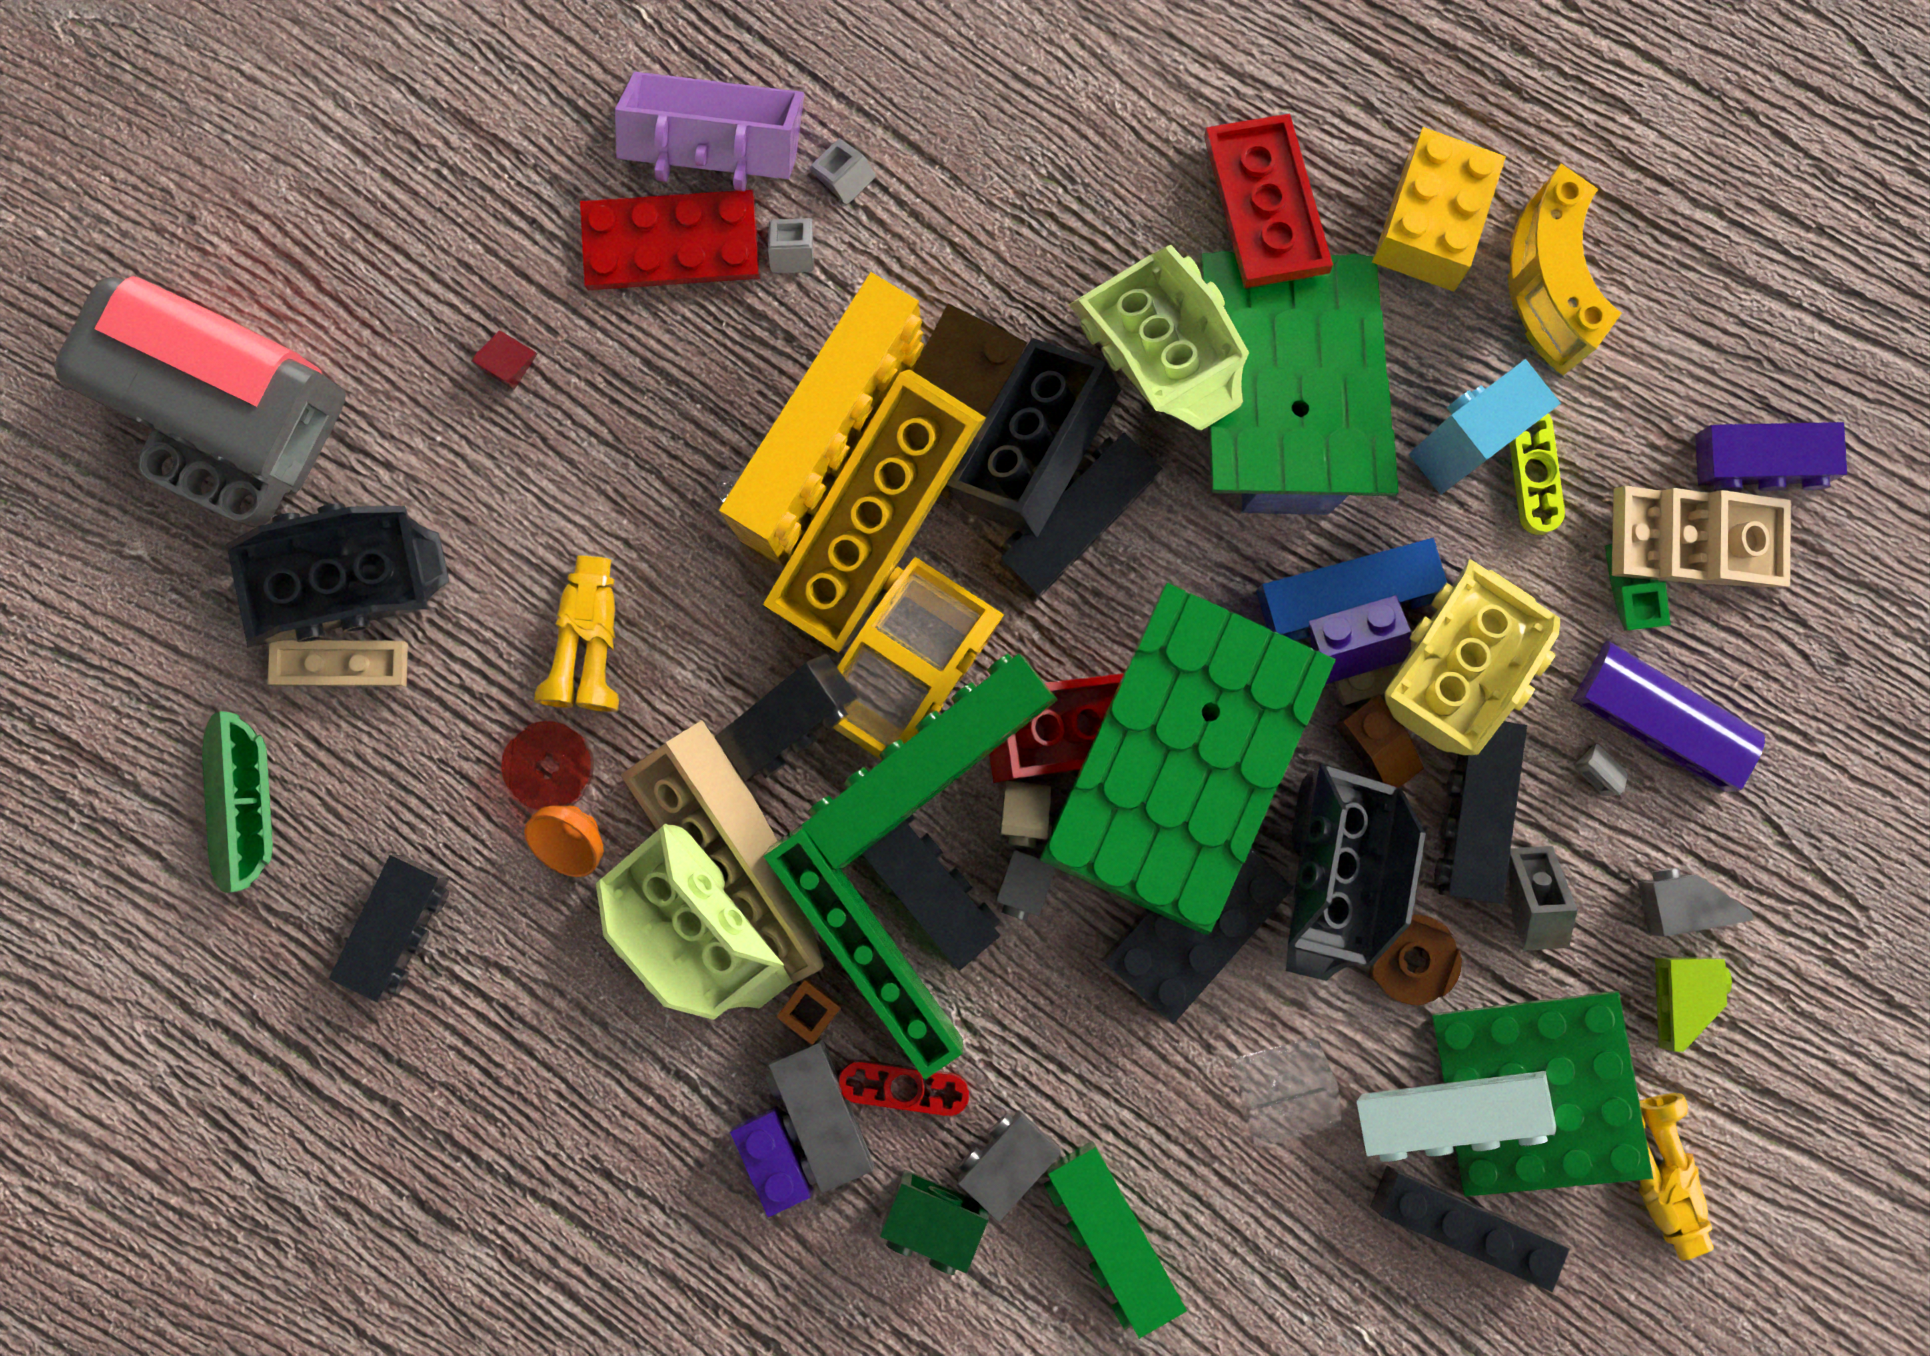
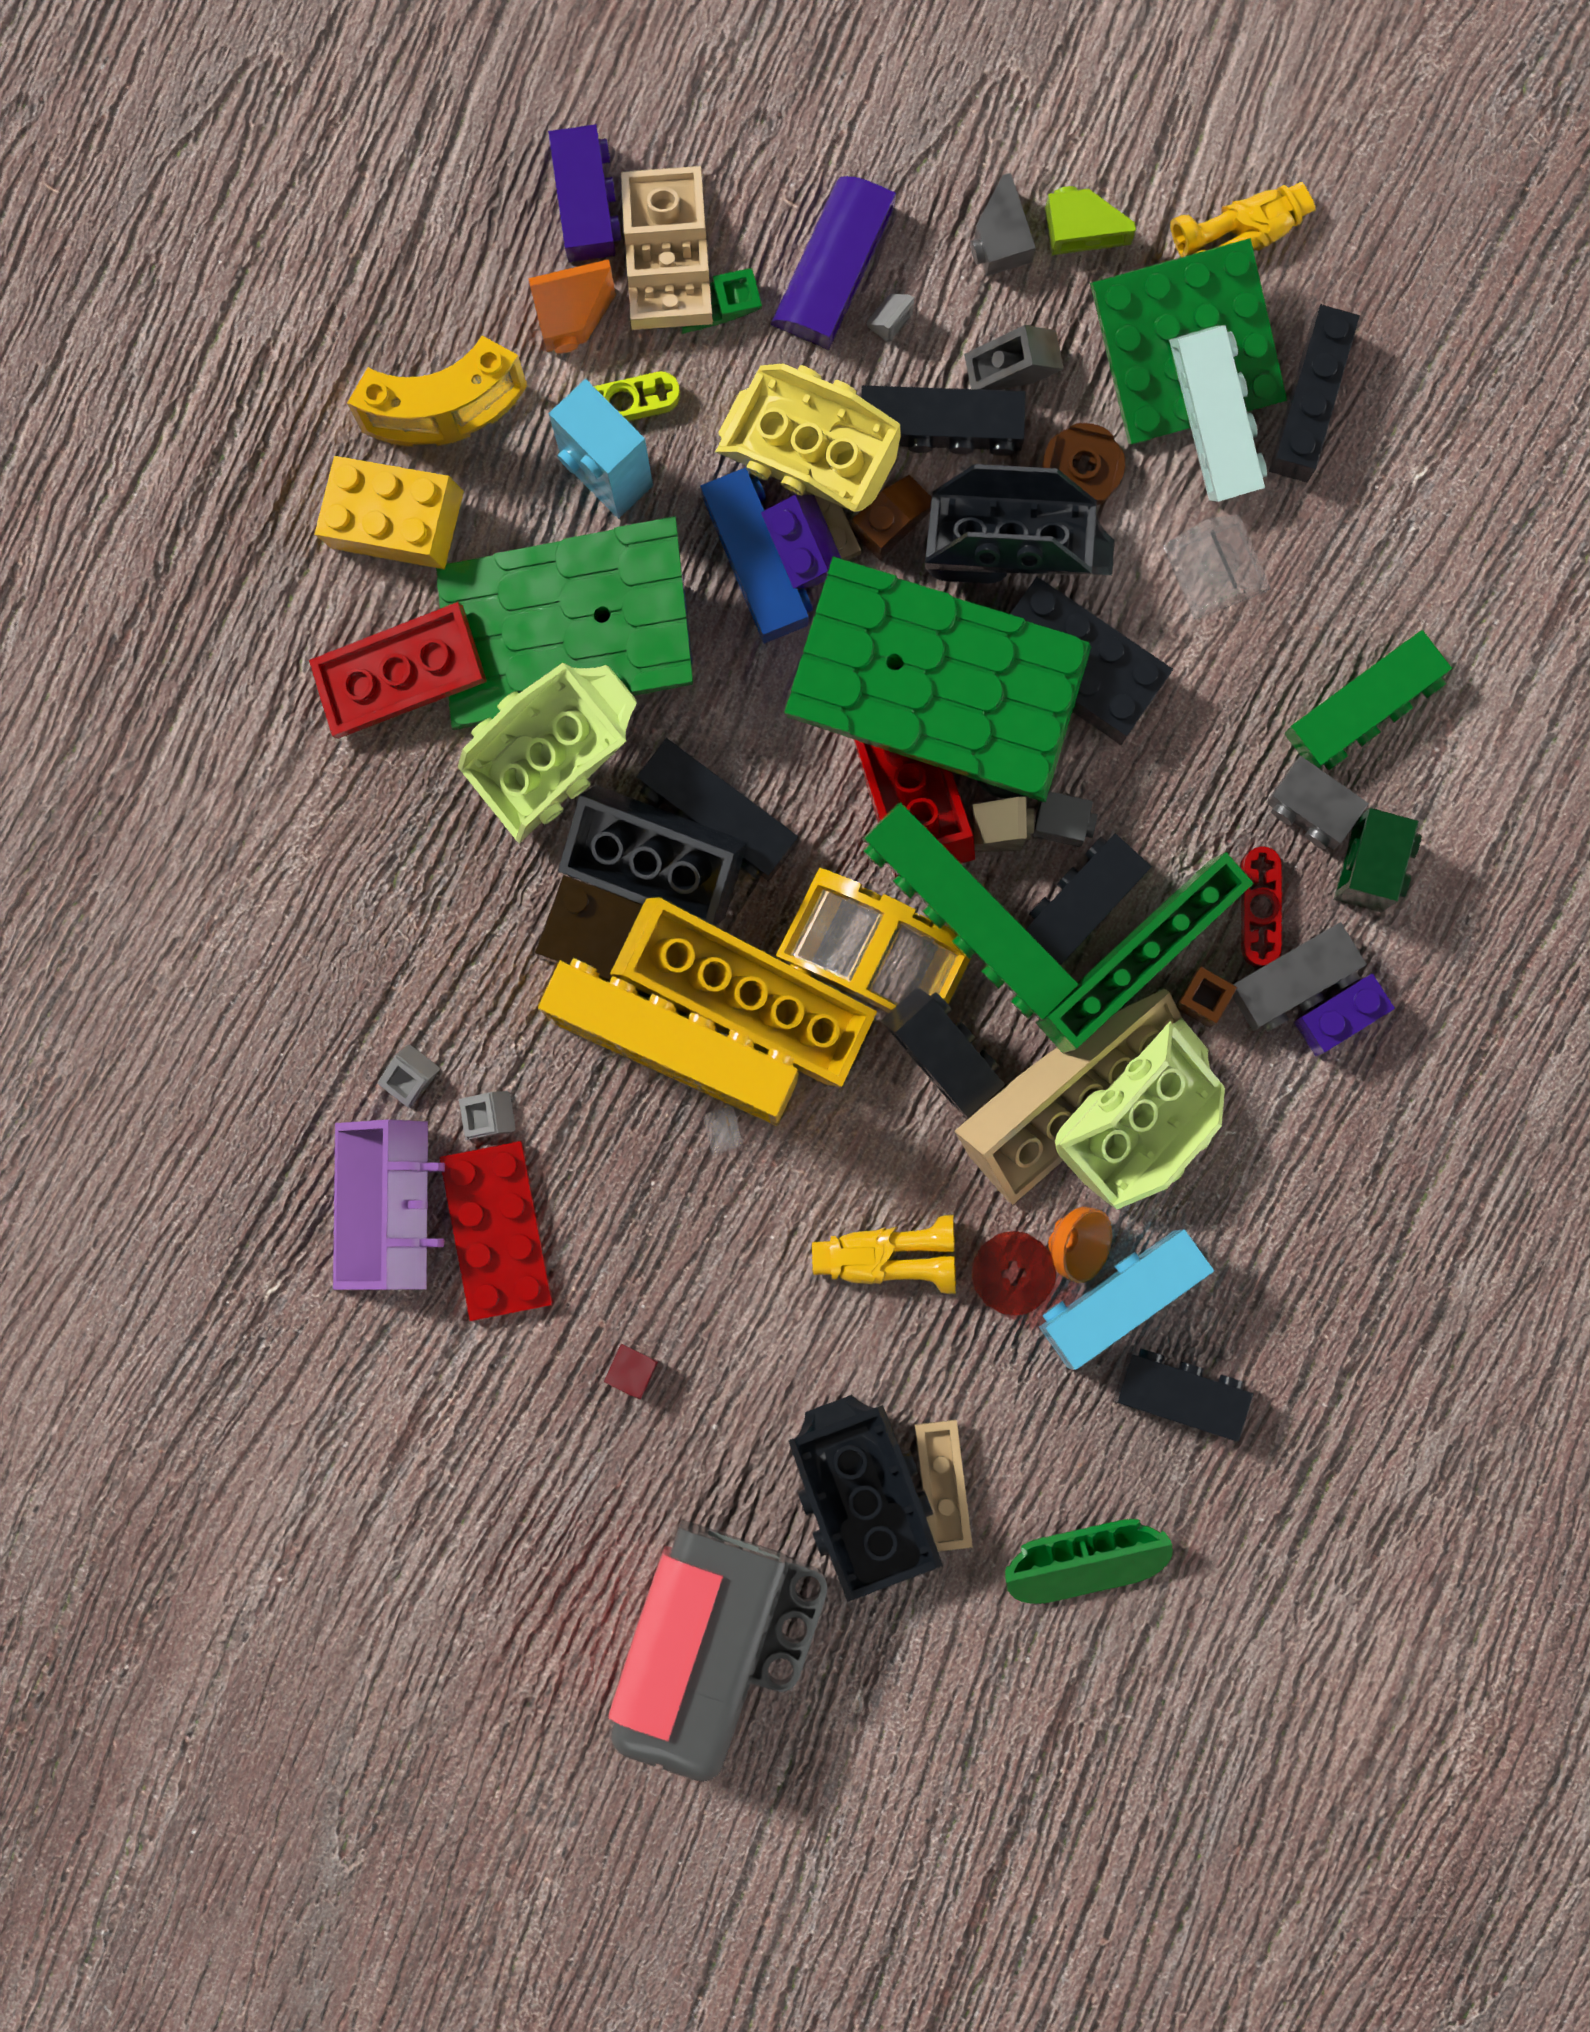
camera: 95 degrees left, 0 degrees up
(496, 876) = (1124, 1298): none -> medium azure brick
(1648, 425) = (572, 303): none -> orange slope

